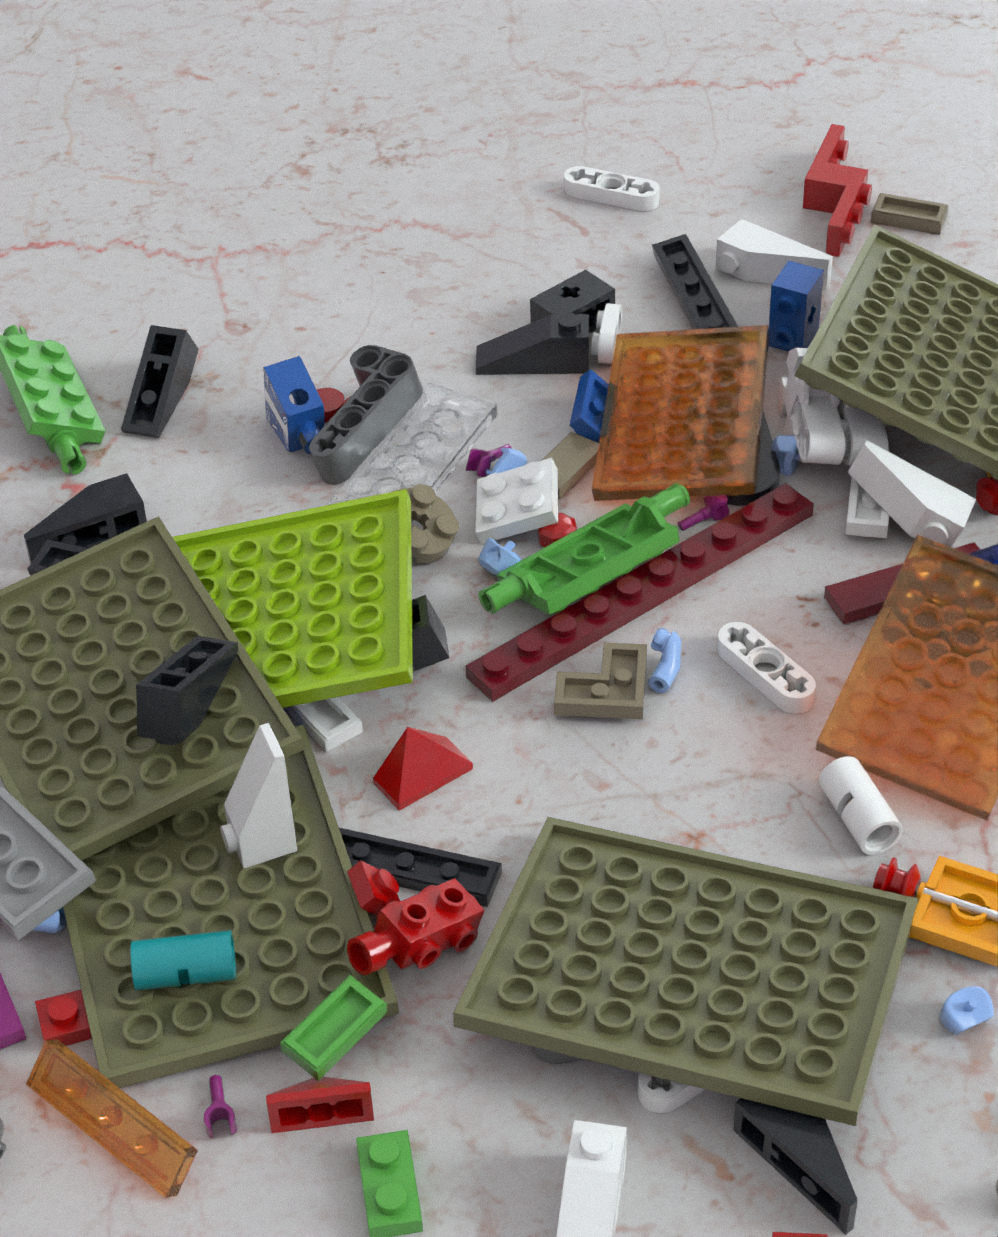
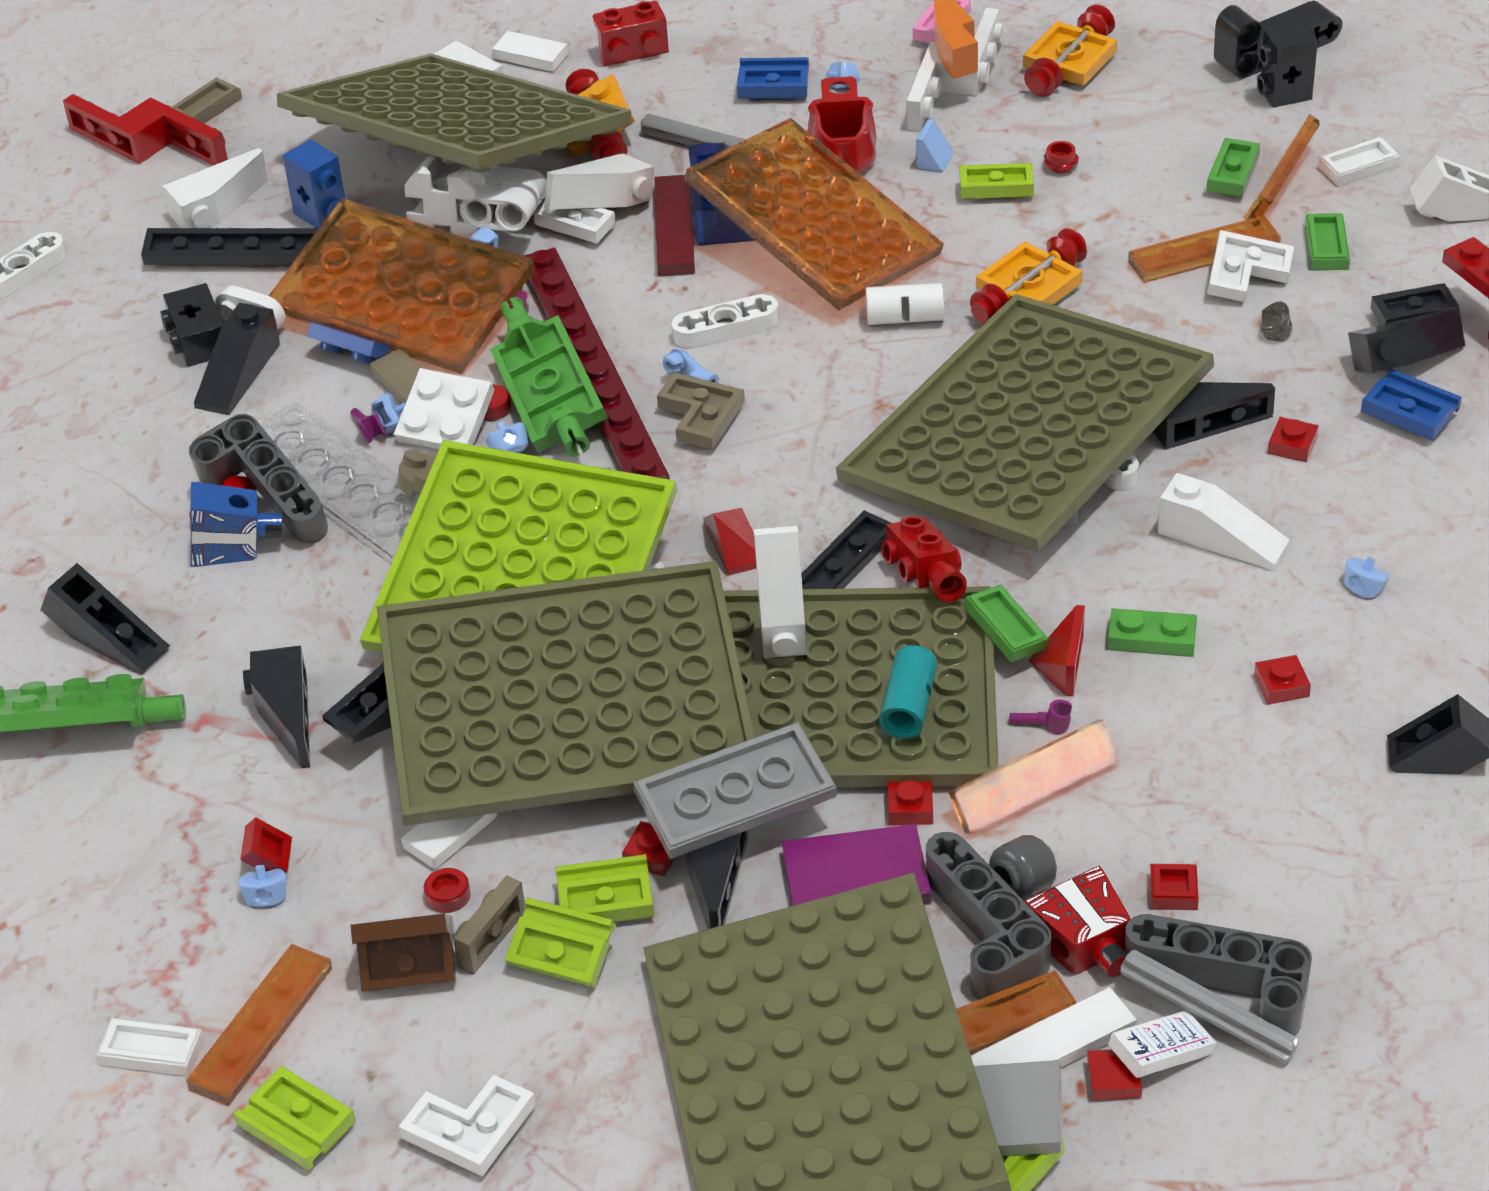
camera: 70 degrees left, 0 degrees up
(182, 689) = (633, 613): black slope -> none
(373, 887) = (868, 576): red plate -> none
(966, 1009) = (1115, 307): light blue piece -> none

